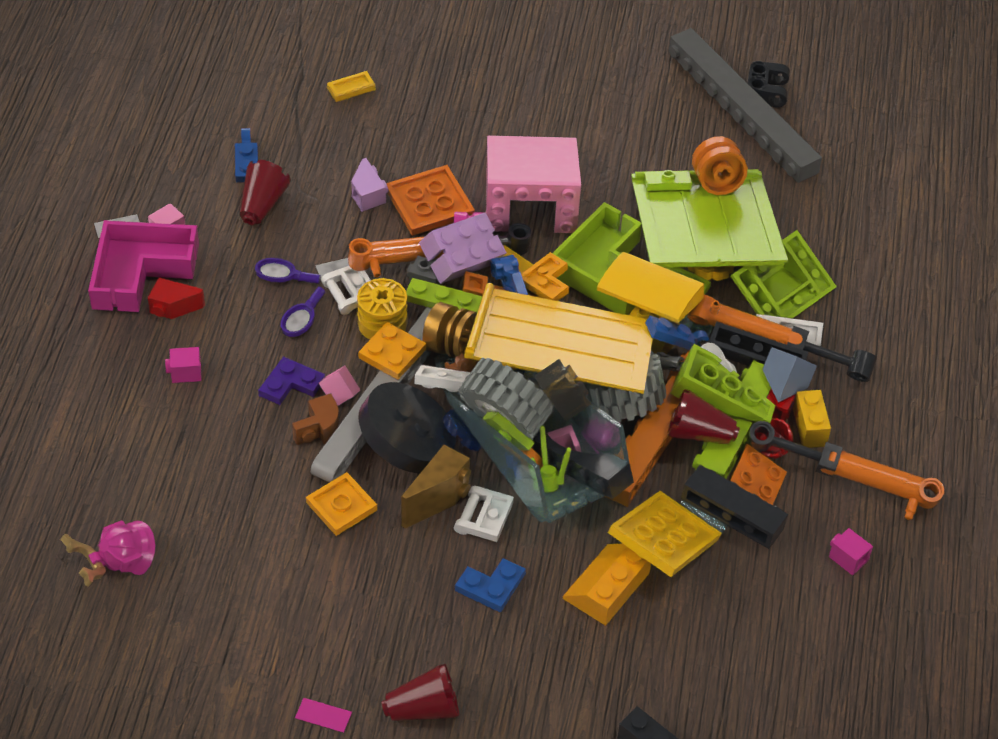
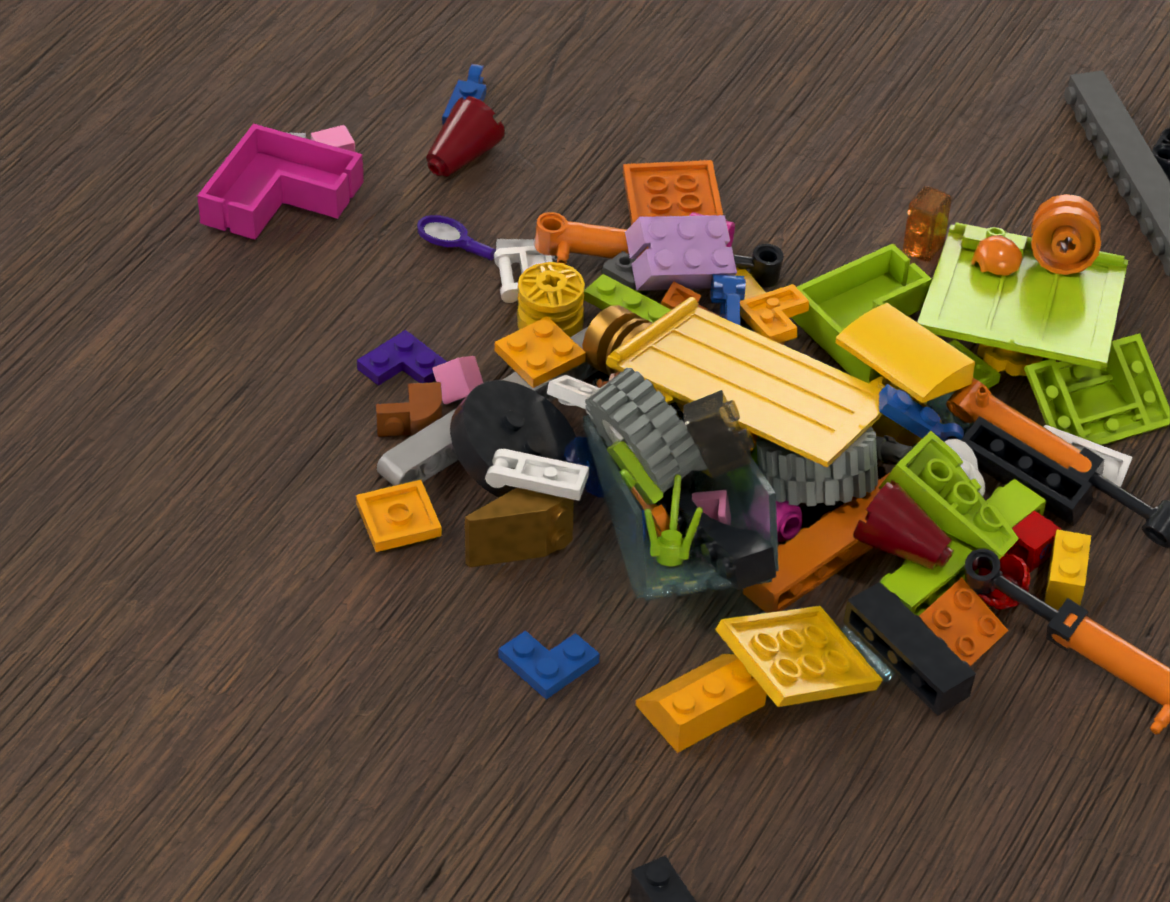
camera: 20 degrees right, 5 degrees down
(121, 548) = (100, 493): dark pink helmet -> none
(174, 299) = (302, 234): red slope -> none
(184, 364) = (279, 309): dark pink brick -> none
(301, 316) = (450, 289): dark purple piece -> none
(323, 715) = (262, 758): dark pink sticker -> none
(351, 86) = (634, 49): yellow tile -> none
(367, 187) = (600, 163): lavender slope -> none
(423, 697) = (394, 768): dark red cone -> none
(440, 450) = (537, 474): none -> white plate
(491, 517) = (582, 581): white plate -> none
(533, 171) = (815, 187): bright pink windscreen -> none
(619, 179) = (926, 223): none -> clear orange brick
(677, 193) = (997, 255): none -> orange hair
(787, 373) = (1052, 503): sand blue slope -> none
(850, 551) = (1052, 749): dark pink brick -> none

